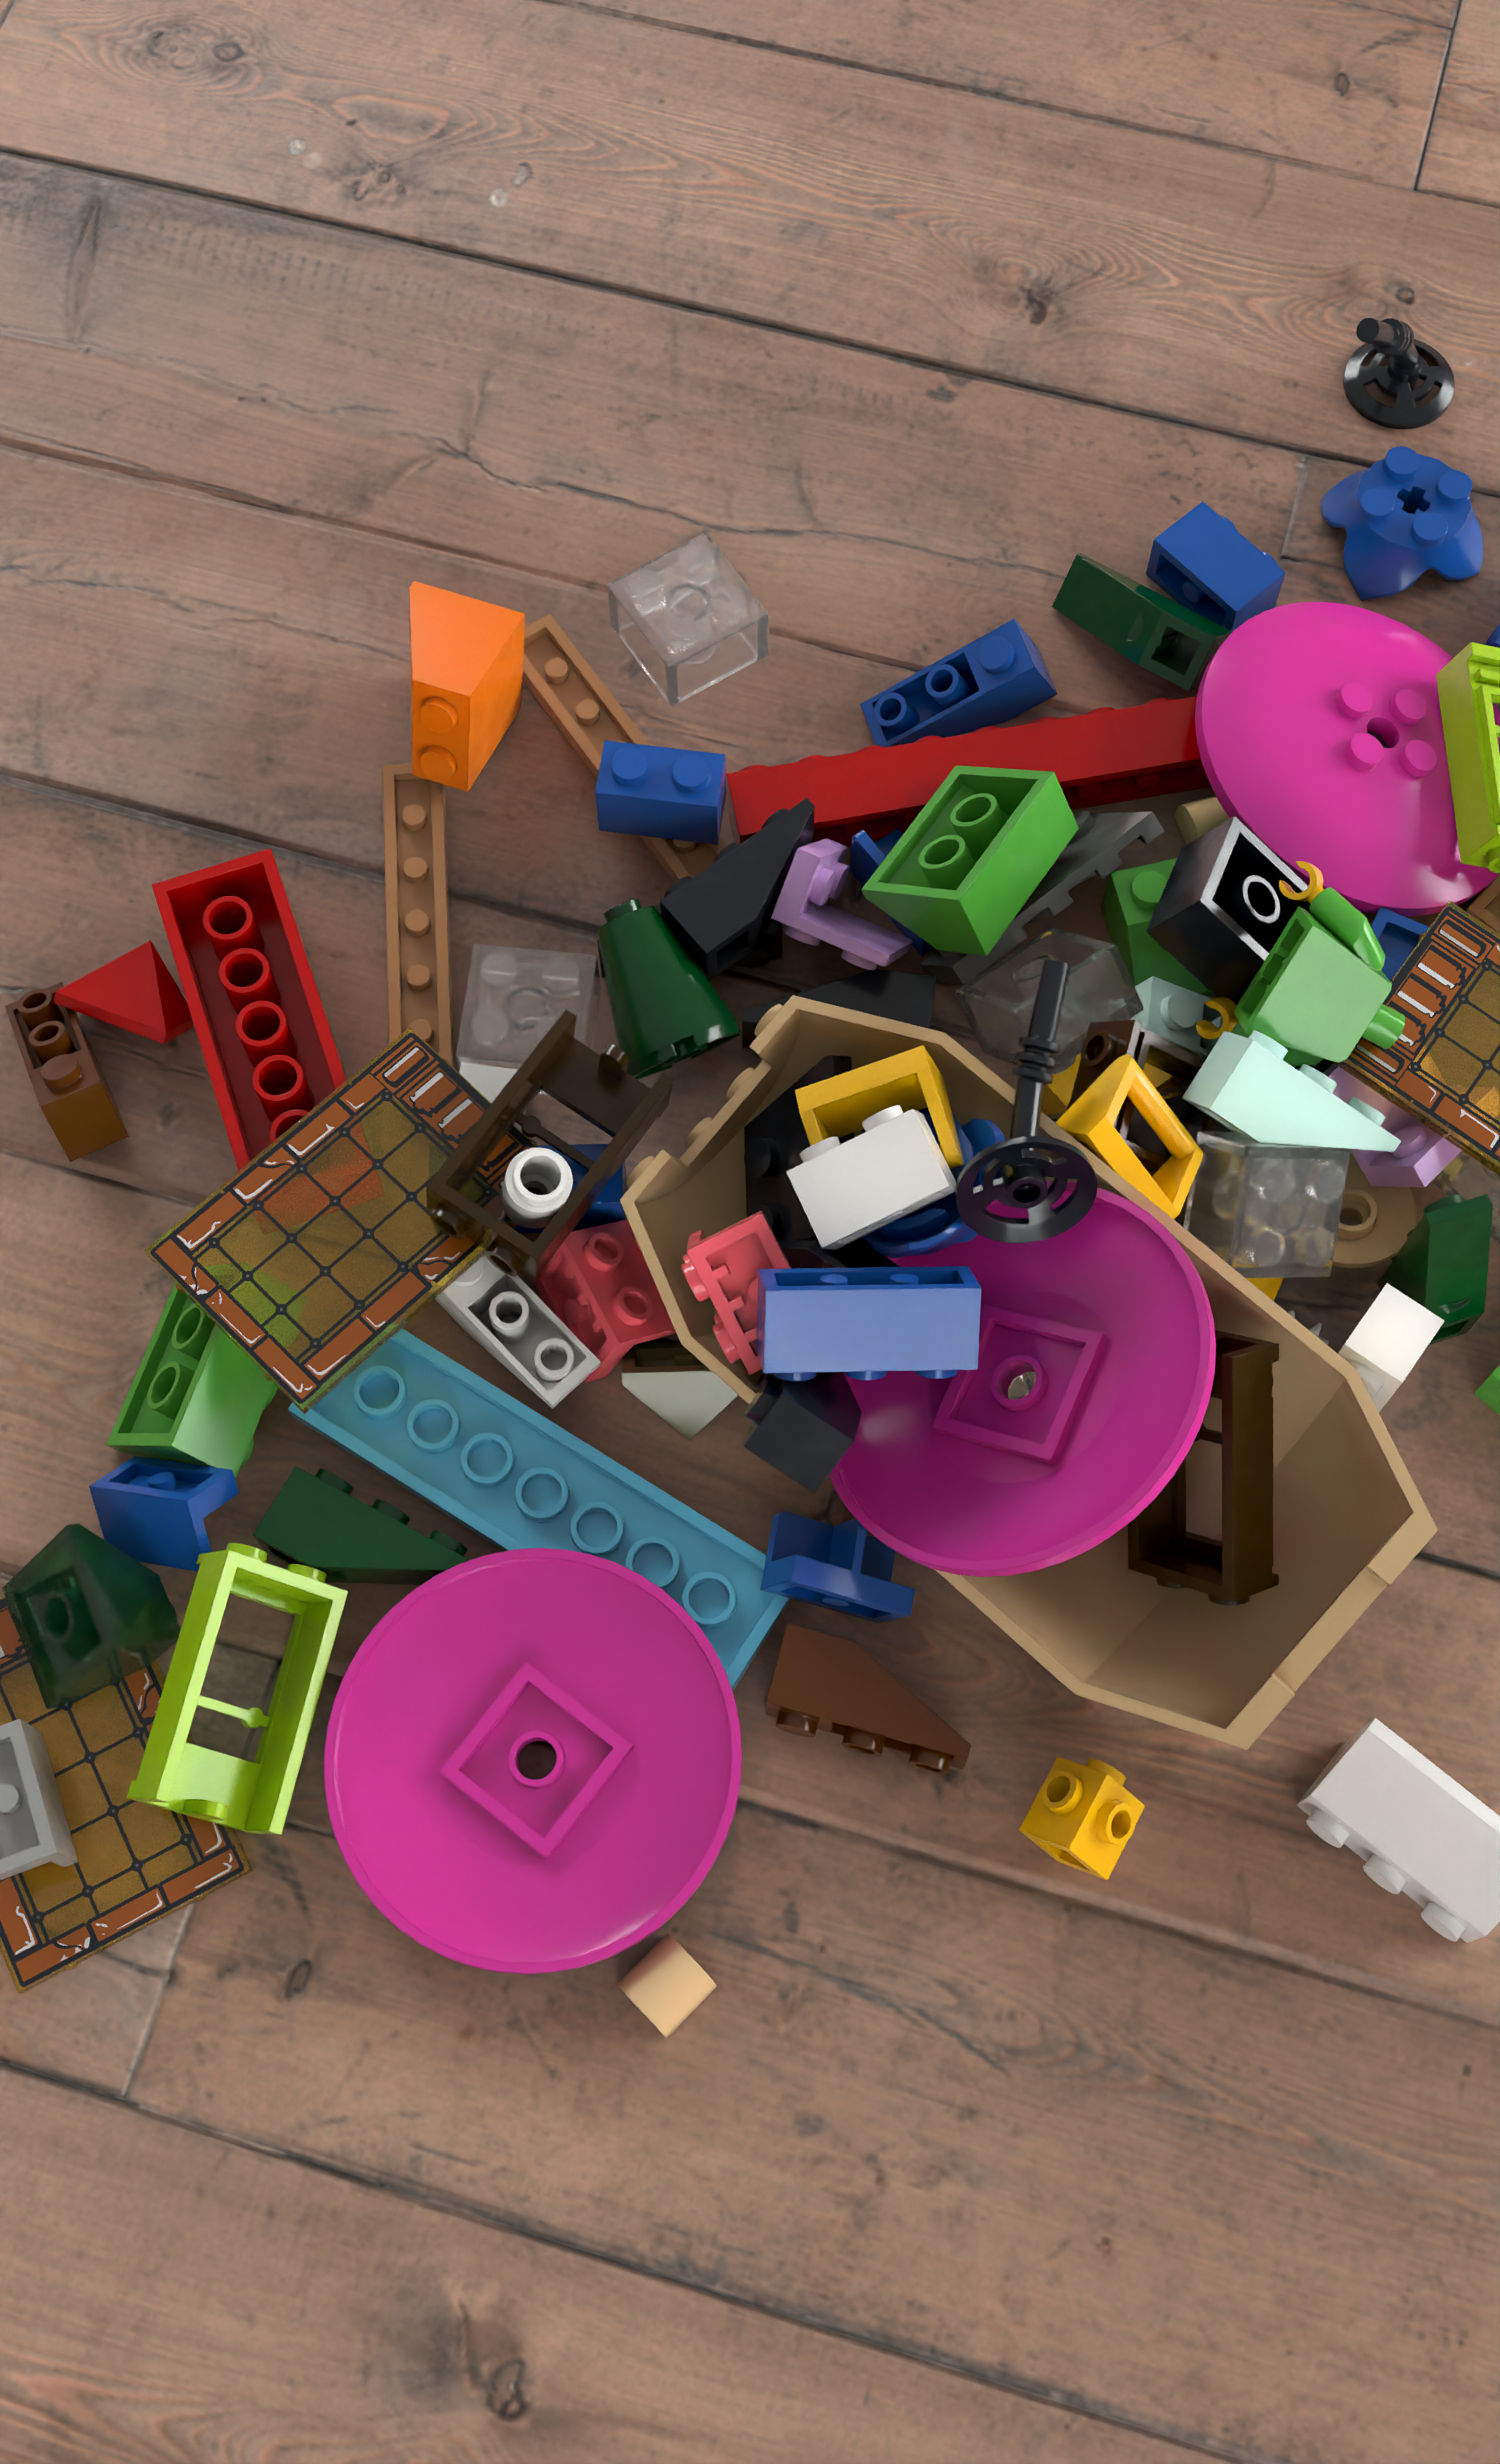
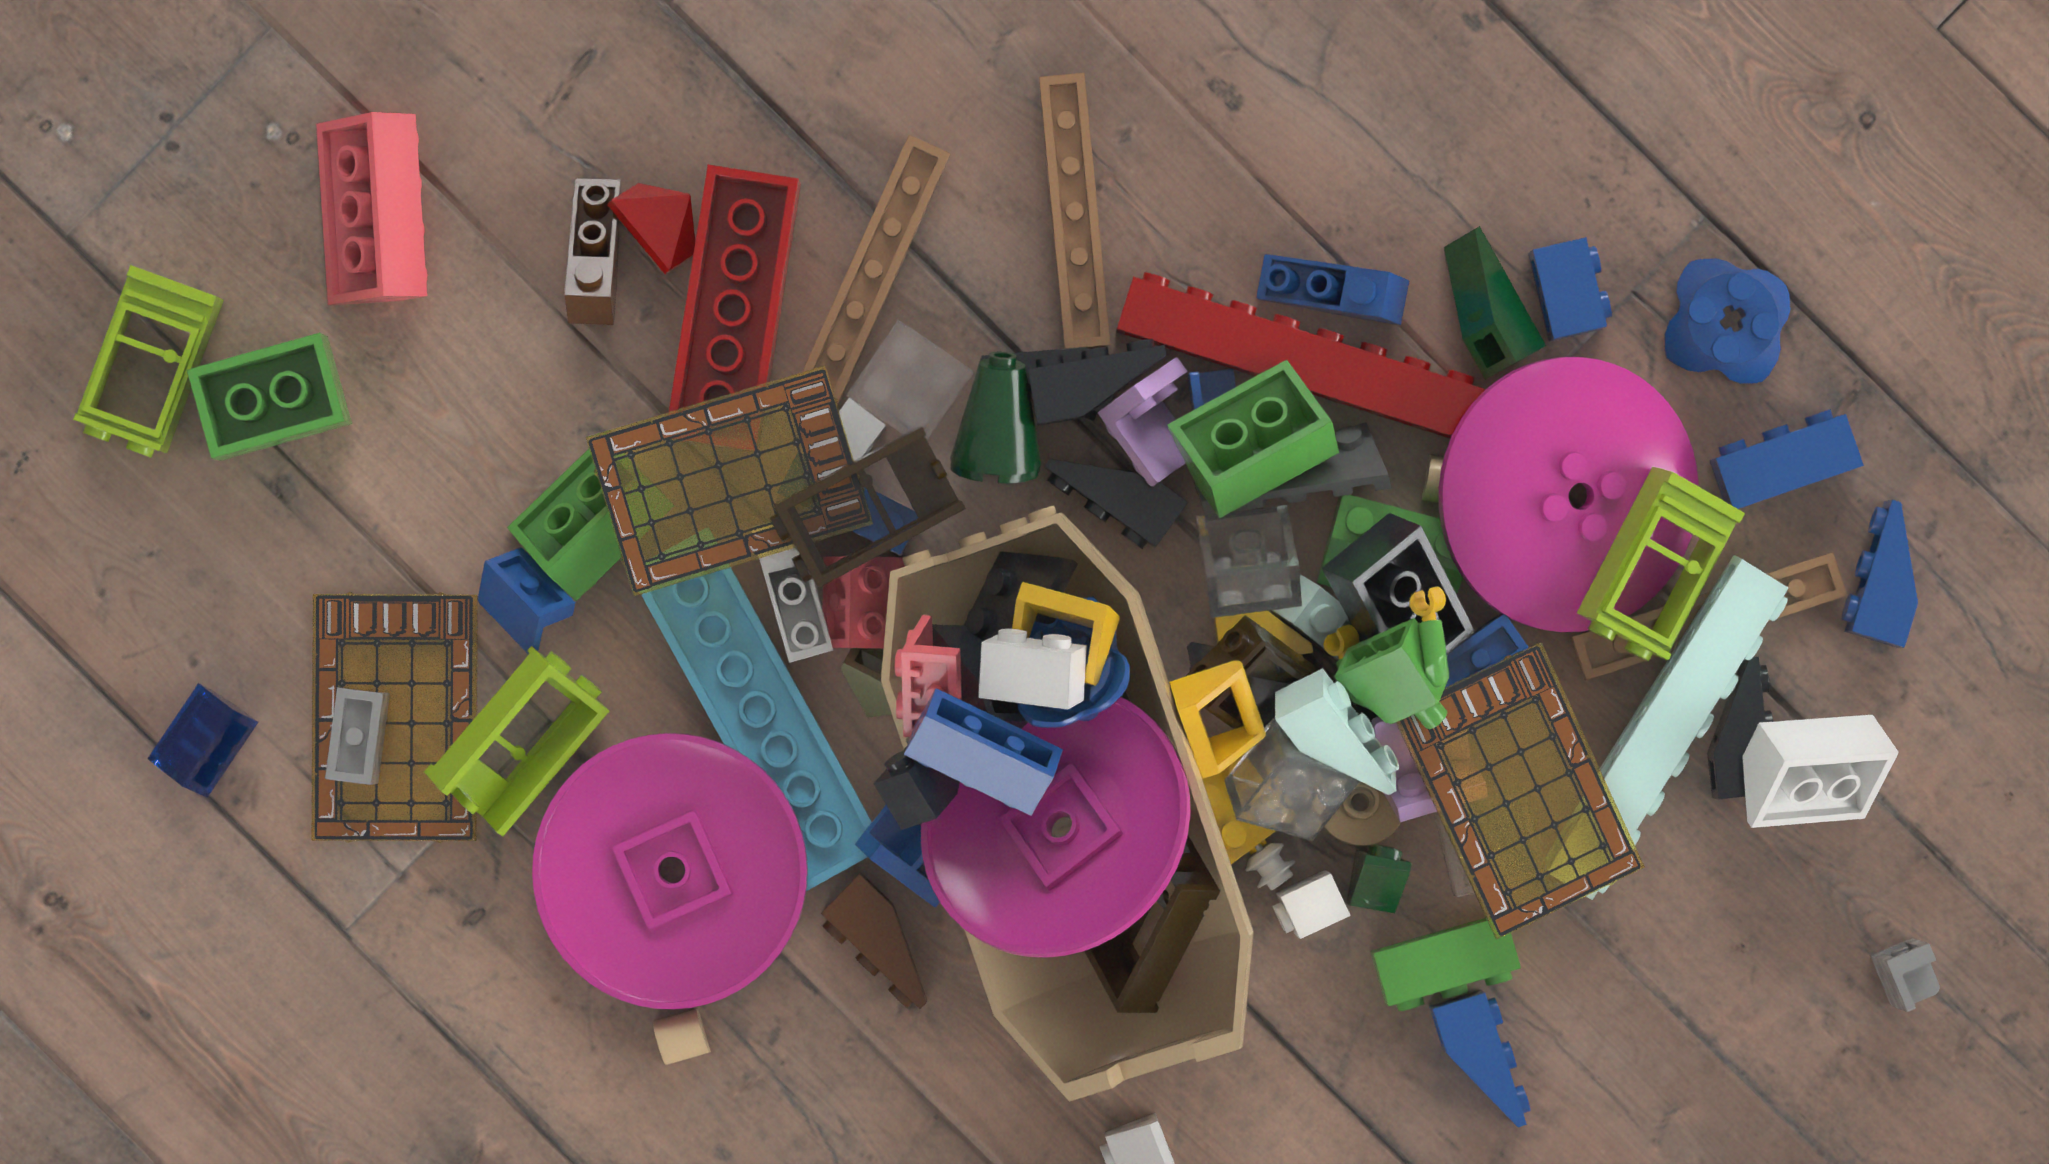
camera: 25 degrees right, 20 degrees up
(88, 1615) = (448, 641): clear green slope -> none
(329, 1530) = (619, 669): dark green slope -> none
(460, 682) = (986, 111): orange slope -> none
(541, 1170) = (846, 549): white brick -> none
(661, 792) = (1079, 272): blue brick -> none
(689, 619) = (1178, 130): clear brick -> none
(1023, 1168) = (1125, 713): black dish -> none
(1083, 1816) = (970, 1075): yellow brick -> none
(1398, 378) = (1787, 191): black dish -> none

